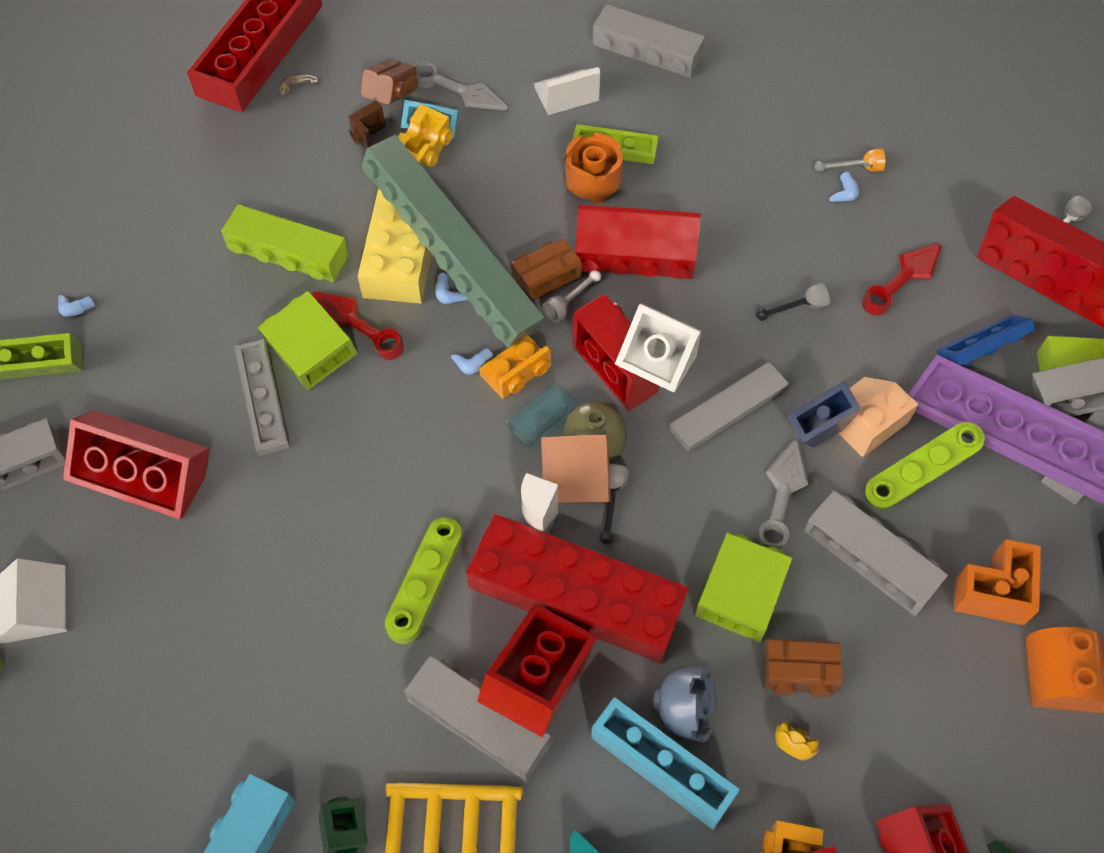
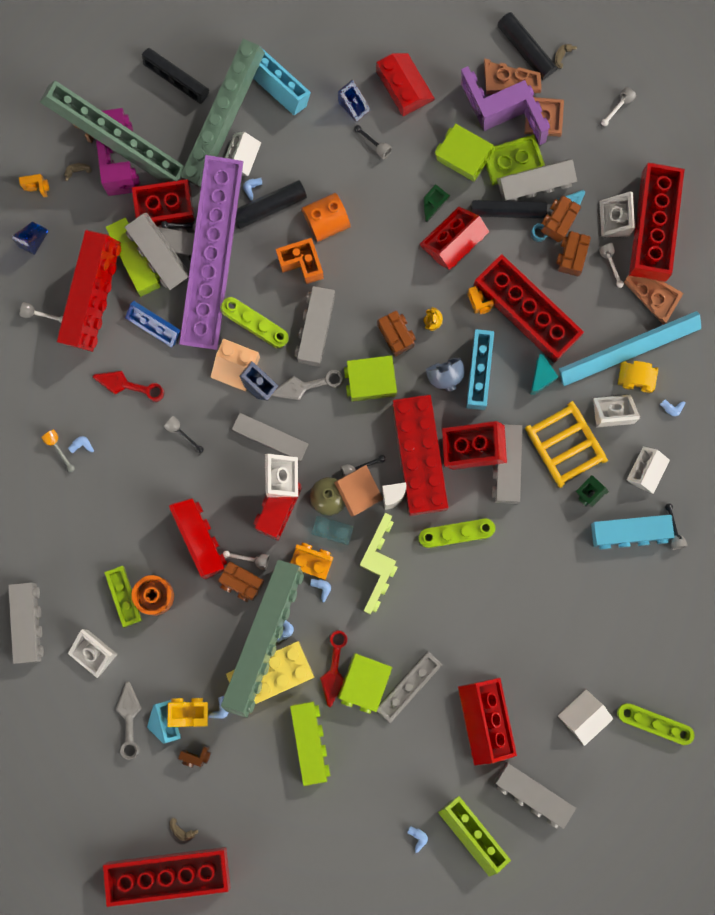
camera: 120 degrees left, 20 degrees up
(389, 81) = (158, 761): dark orange brick -> none
(454, 444) = (379, 564): none -> yellowish green bracket

